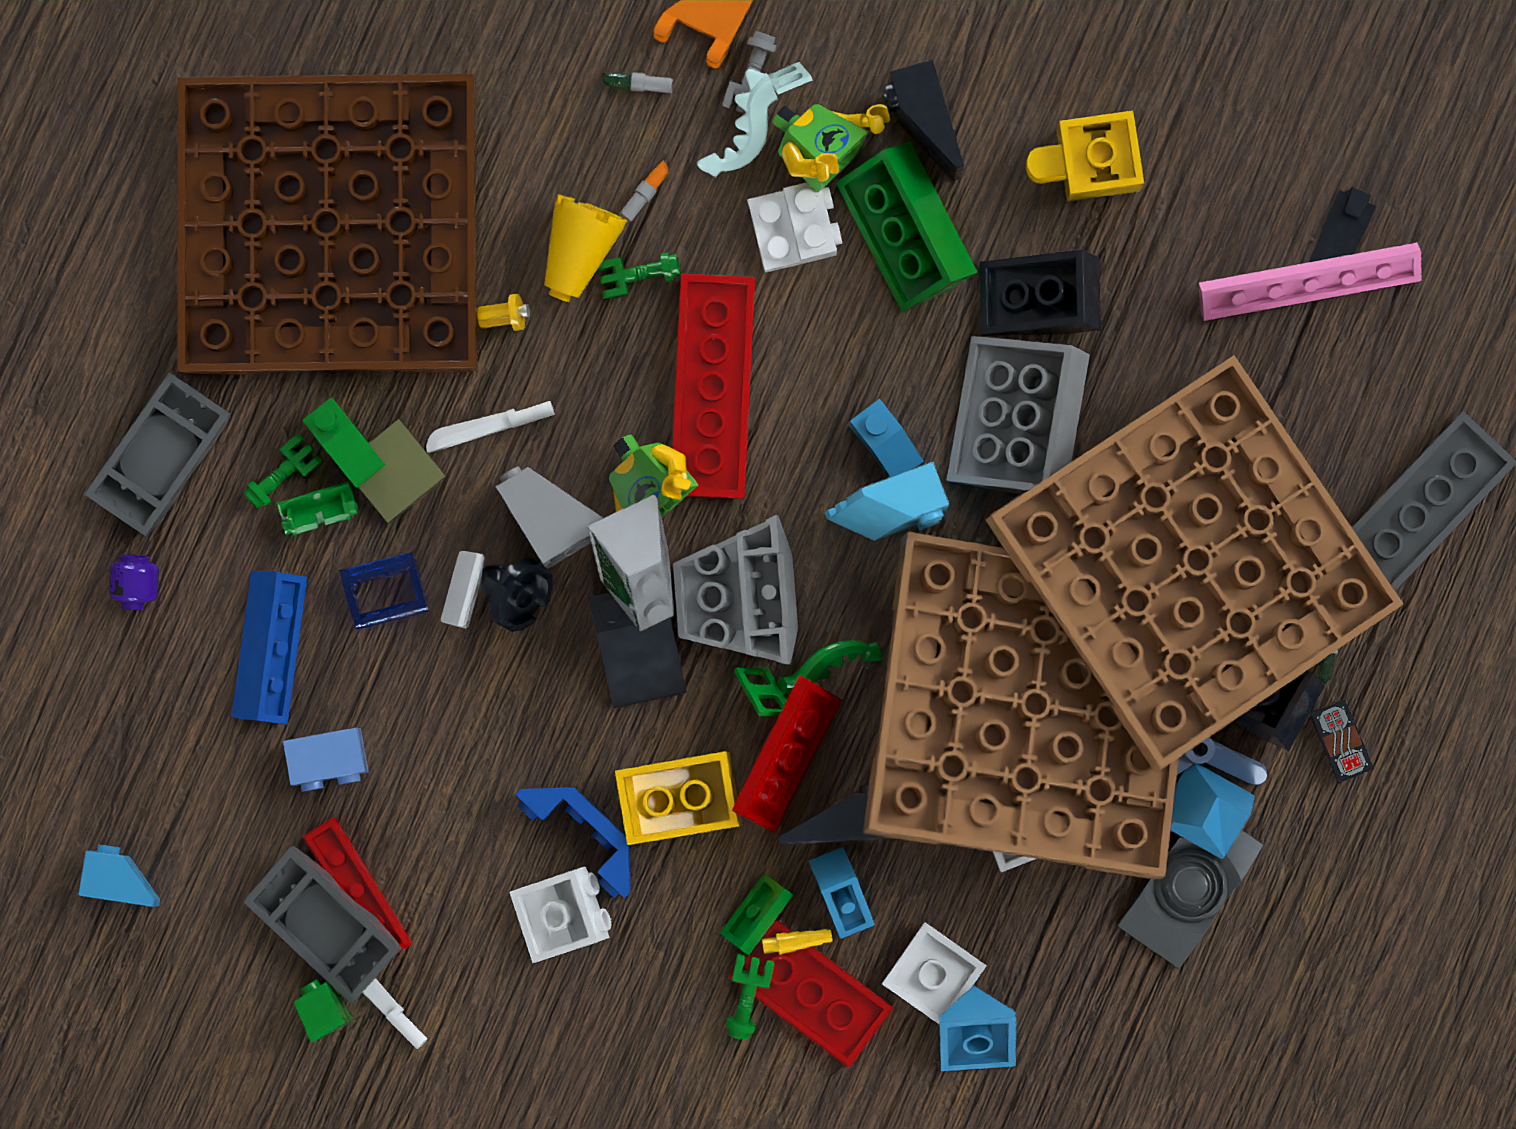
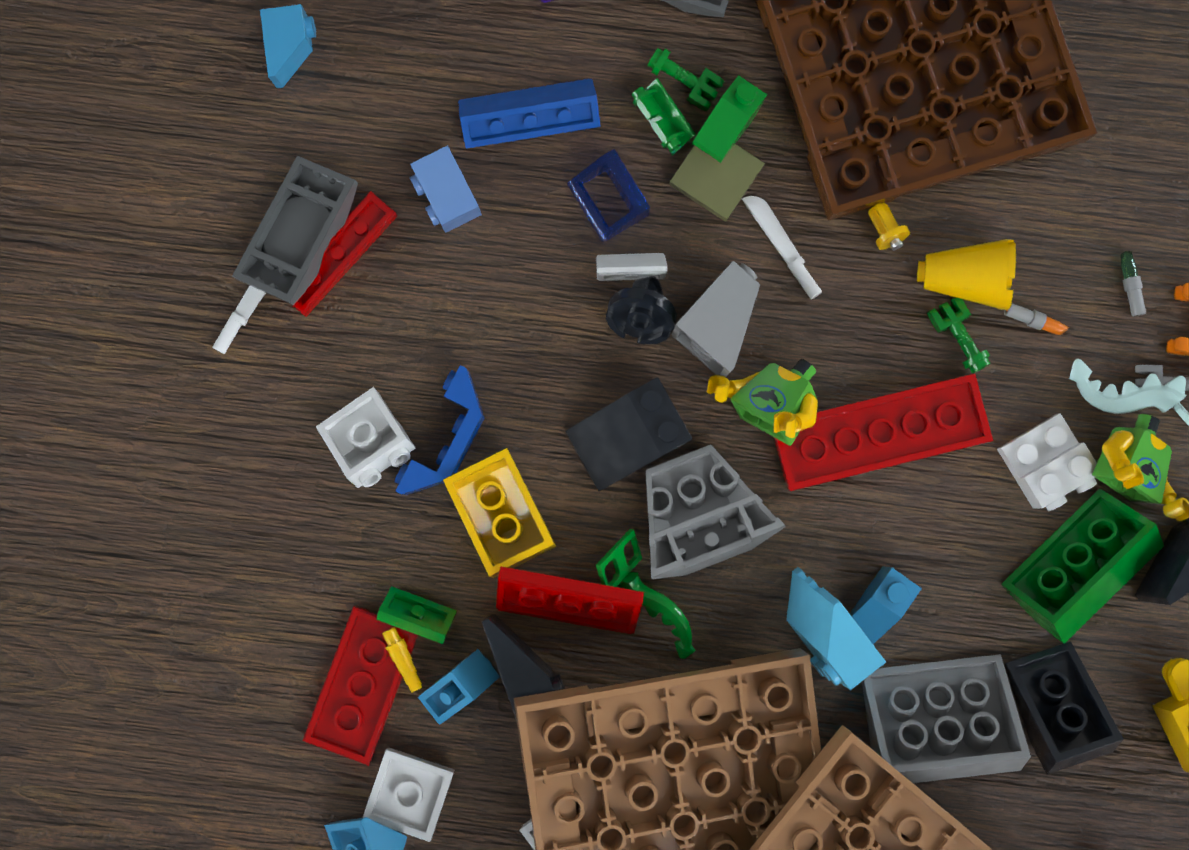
camera: 70 degrees right, 0 degrees up
(321, 1010) = (216, 251): green slope -> none
(635, 561) = (703, 408): light grey slope -> none
(740, 1025) = (313, 630): green hinge -> none

